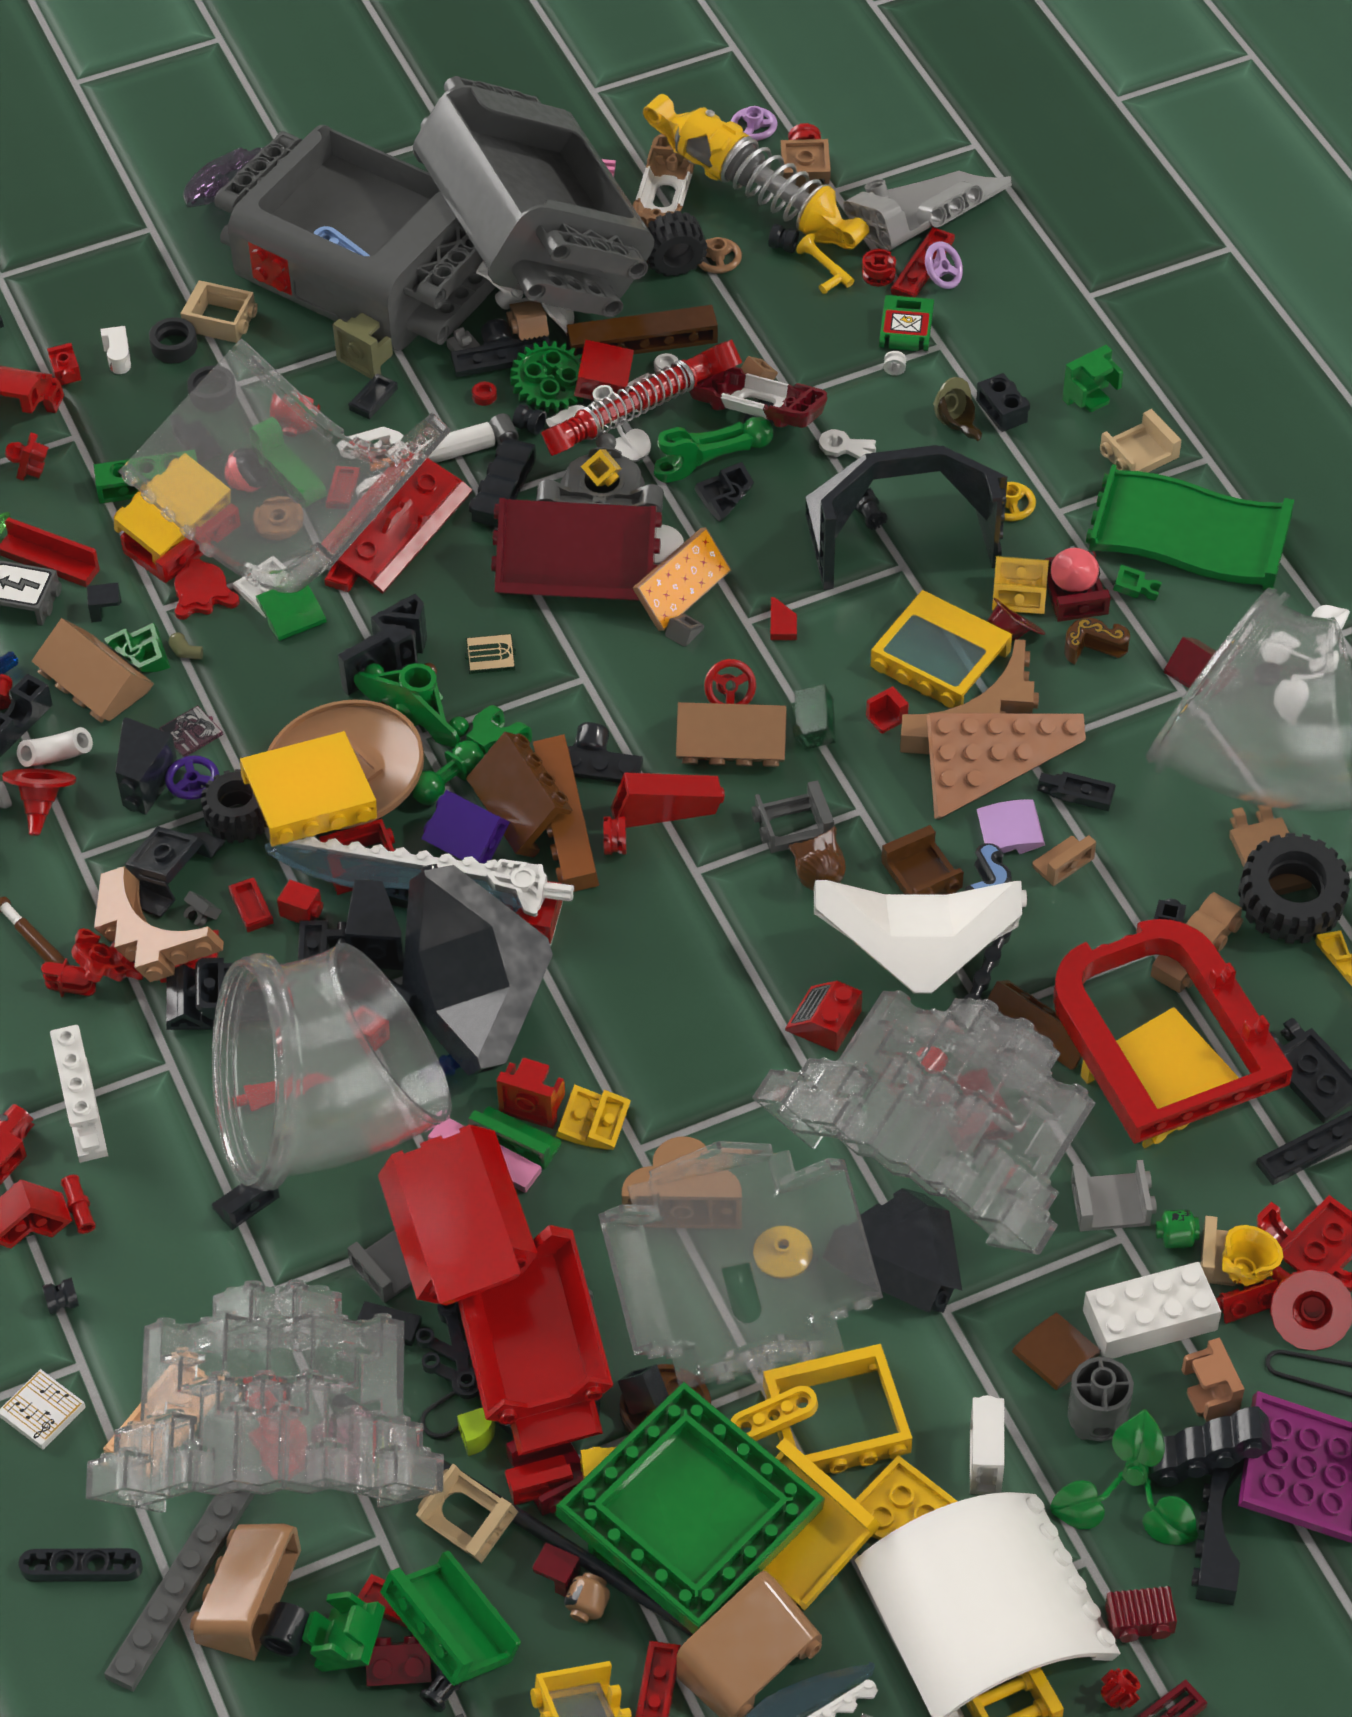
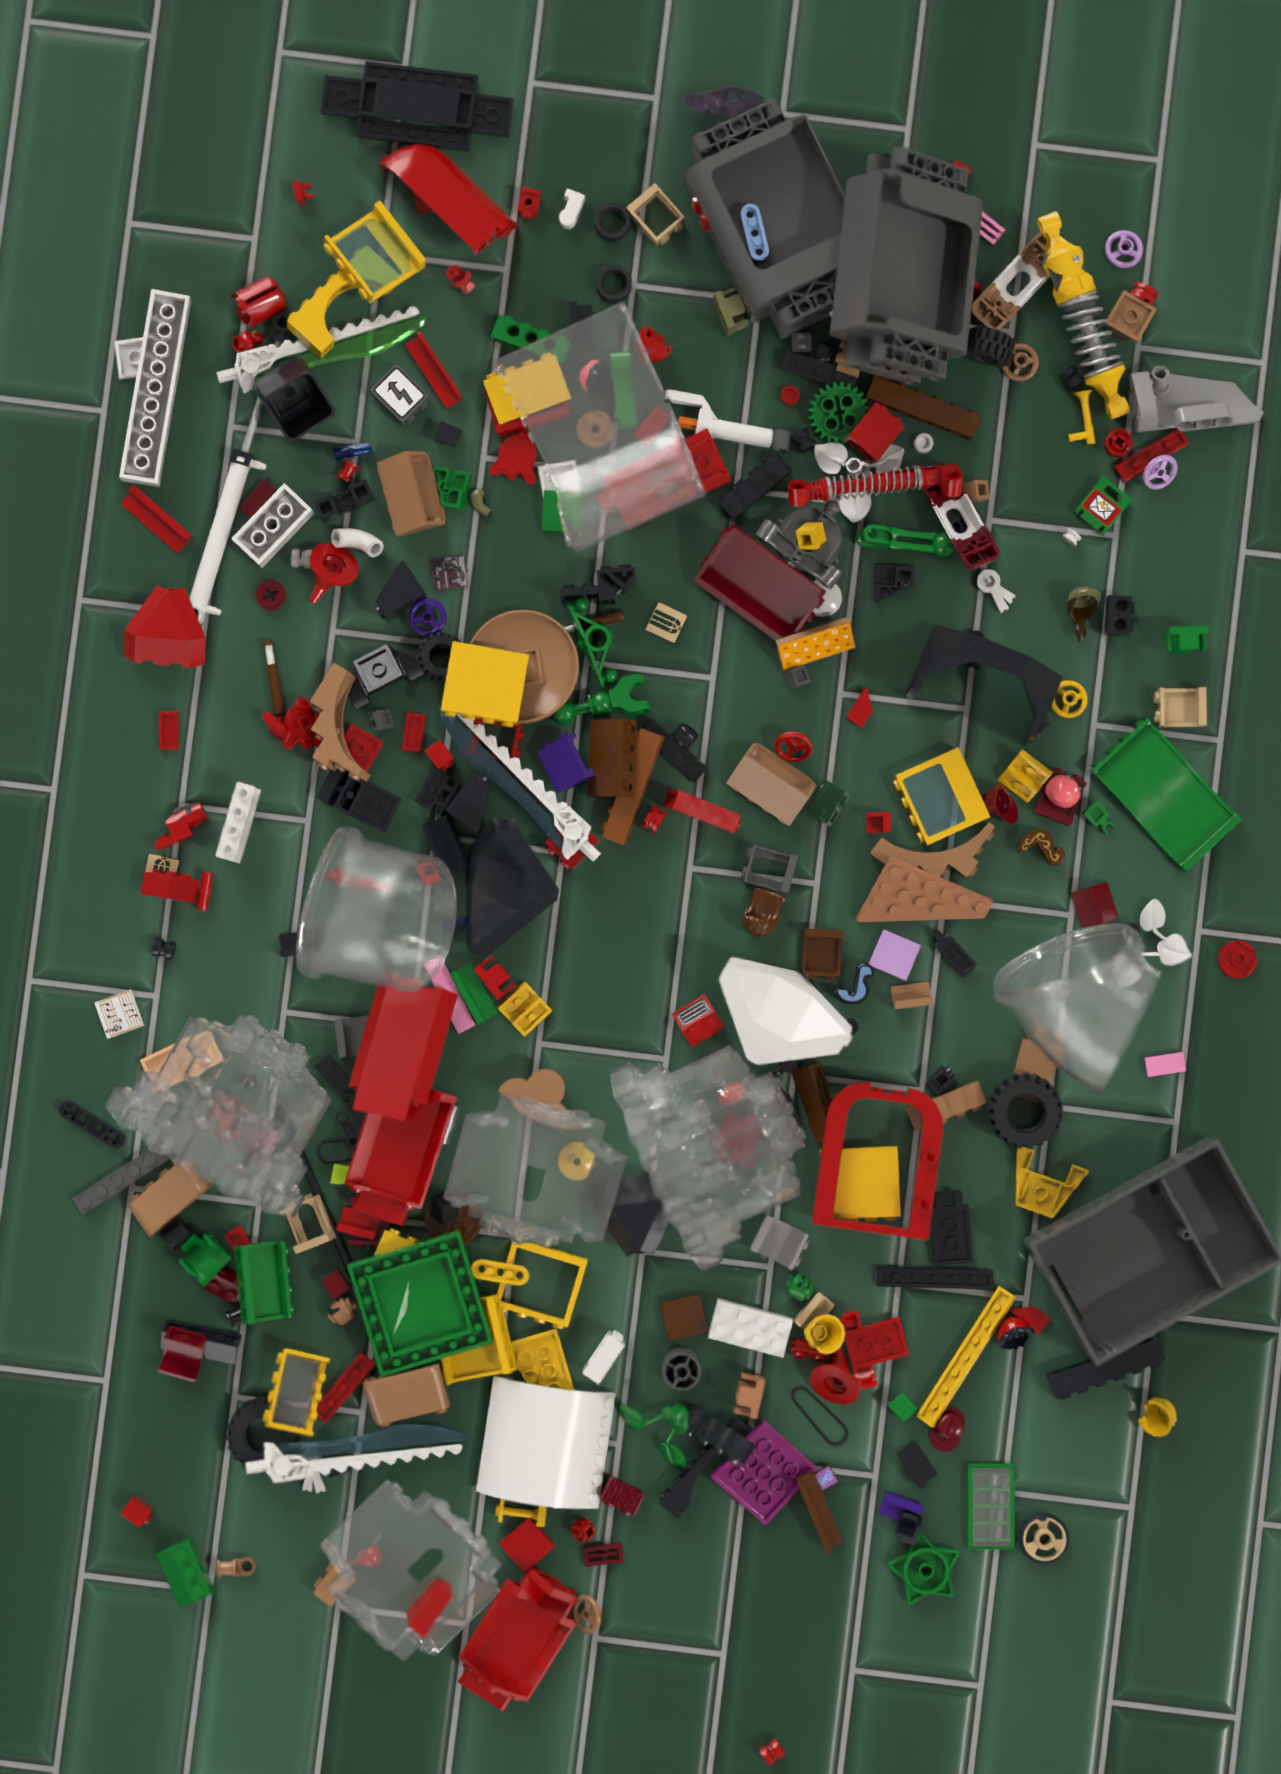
camera: 25 degrees right, 35 degrees up
(373, 396) = (716, 353): black tile -> none

